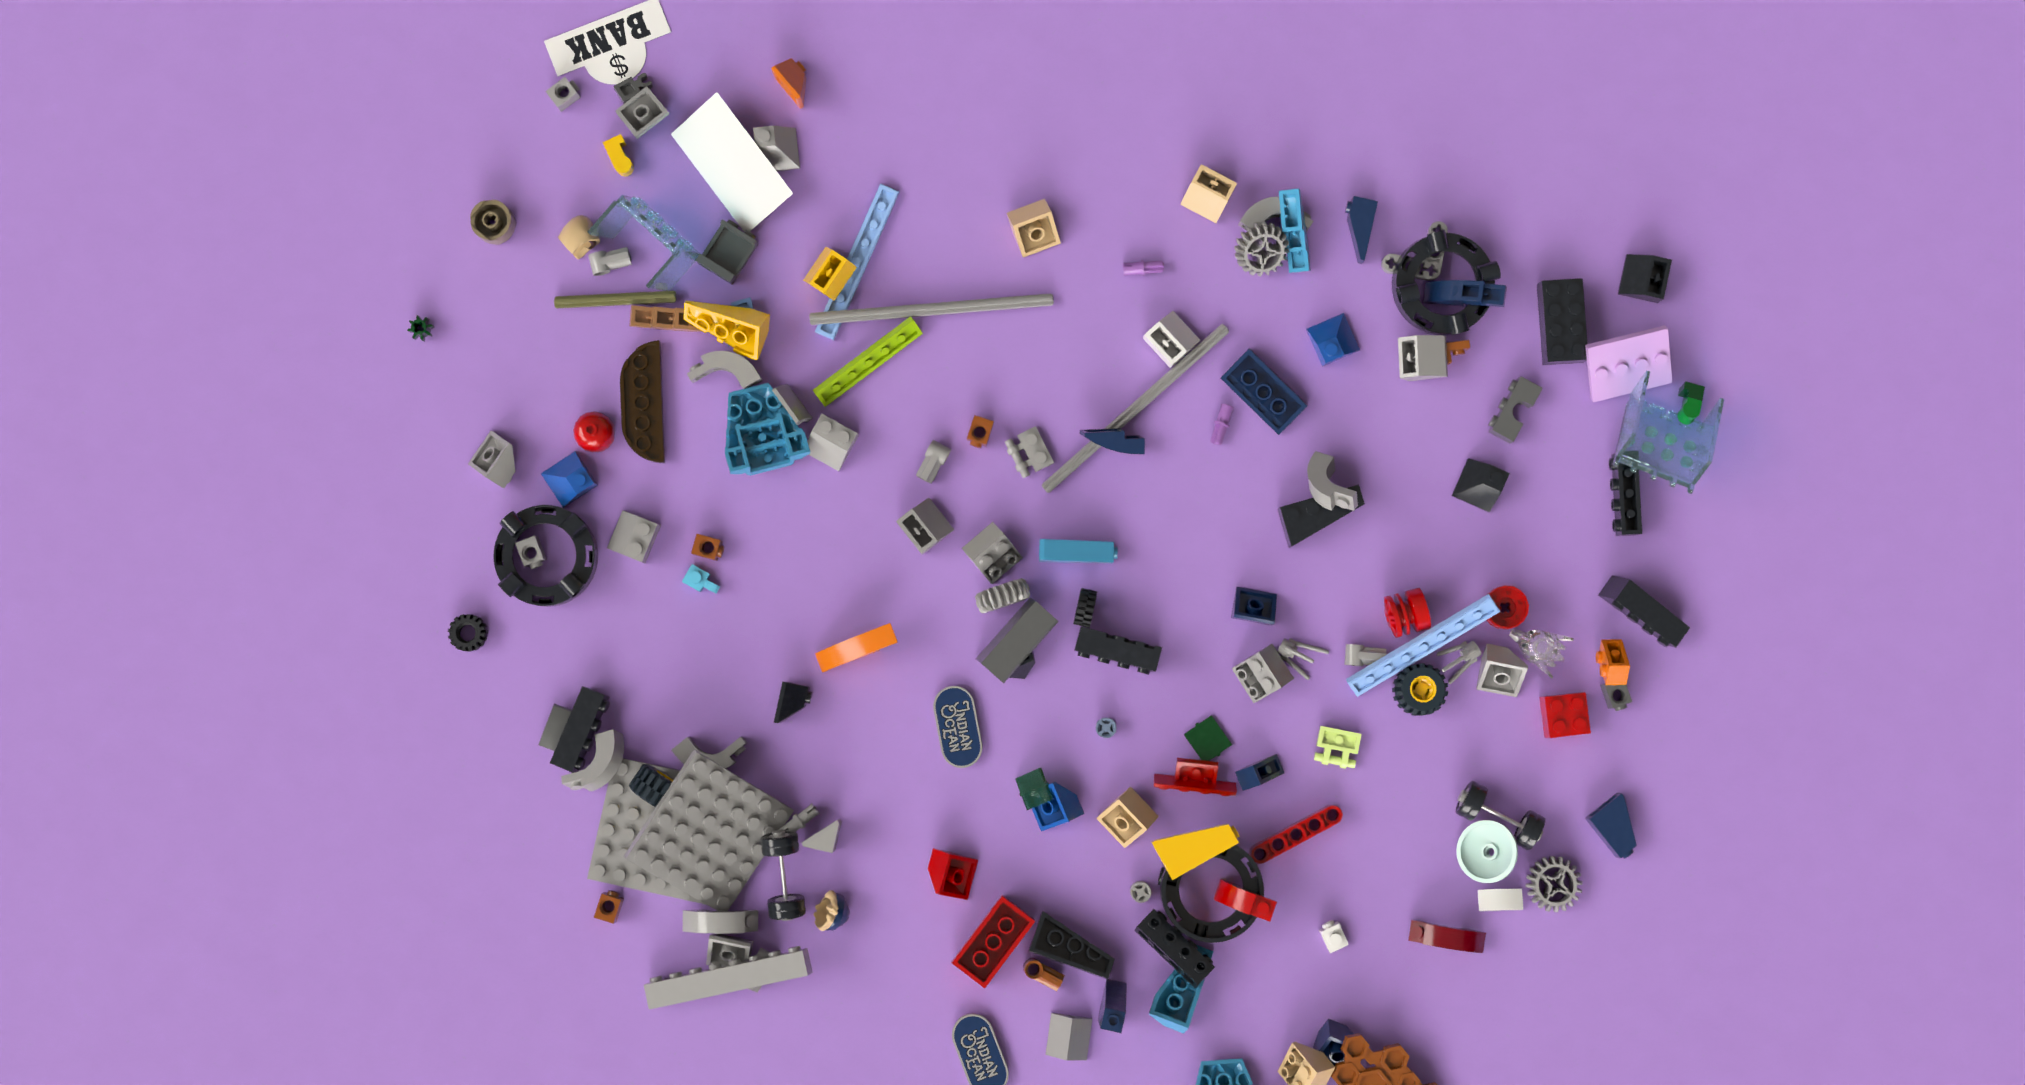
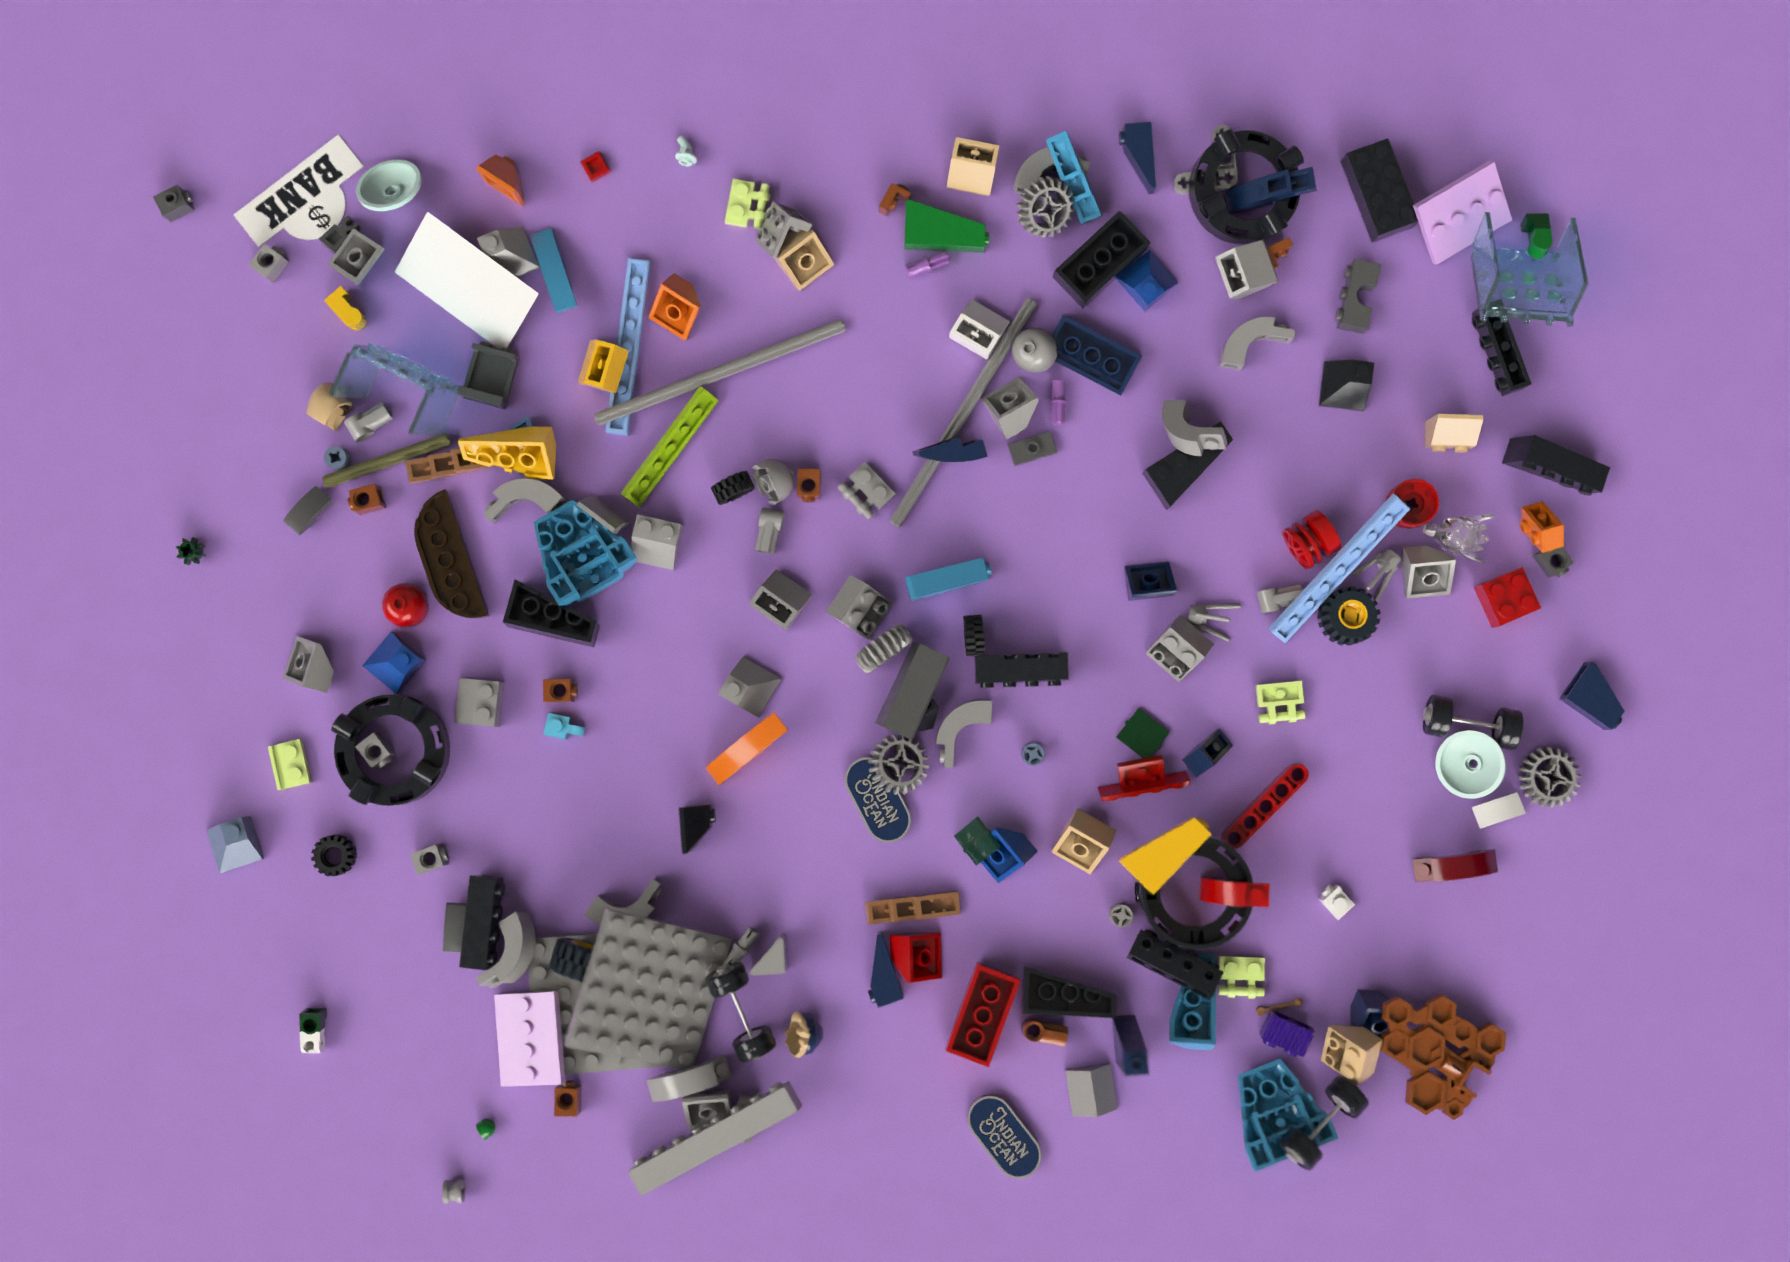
camera: 10 degrees left, 0 degrees up
(383, 597) = (234, 844): none -> sand blue slope
(404, 779) = (312, 1030): none -> leg
(452, 541) = (289, 764): none -> yellowish green plate
(484, 213) = (220, 414): dark tan brick -> none
(486, 957) = (453, 1191): none -> light grey wheel
(496, 16) = (174, 203): none -> dark grey brick
(530, 910) = (486, 1128): none -> green hinge
(532, 322) = (306, 509): none -> dark grey slope
(542, 661) = (420, 858): none -> light grey brick
(576, 288) = (341, 461): none -> sand blue wheel
(592, 844) = (529, 1038): none -> plate
(596, 328) = (375, 503): none -> dark orange brick
(689, 57) = (388, 185): none -> light aqua dish
(713, 478) = (541, 615): none -> black wedge
(812, 175) = (554, 270): none -> dark azure slope
(875, 93) = (595, 166): none -> red tile
(875, 594) = (749, 686): none -> light grey slope
(910, 239) = (676, 306): none -> orange slope
(912, 415) = (732, 487): none -> black tyre
(916, 889) = (884, 981): none -> dark blue slope
(951, 418) = (773, 479): none -> light grey cylinder
(958, 107) = (685, 155): none -> light aqua plate
(960, 830) = (912, 907): none -> medium nougat slope
(981, 708) = (897, 773): none -> light grey gear
(994, 163) = (740, 204): none -> yellowish green plate
(1020, 194) = (776, 225): none -> light grey bracket
(1055, 675) = (960, 717): none -> light grey arch
(1126, 201) = (890, 199): none -> dark orange bracket
(1162, 241) = (941, 231): none -> green slope
(1179, 416) = (1011, 407): none -> light grey slope
(1186, 458) = (1032, 448): none -> dark grey plate
(1214, 372) = (1034, 350): none -> light grey cylinder
(1231, 970) = (1242, 968): none -> yellowish green plate
(1238, 1013) = (1261, 1011): none -> medium nougat hinge
(1254, 1038) = (1286, 1033): none -> dark purple brick
(1297, 310) = (1101, 259): none -> black brick
(1412, 412) = (1236, 346): none -> light grey arch
(1560, 555) = (1452, 432): none -> slope
(1645, 277) = (1451, 119): black slope -> none

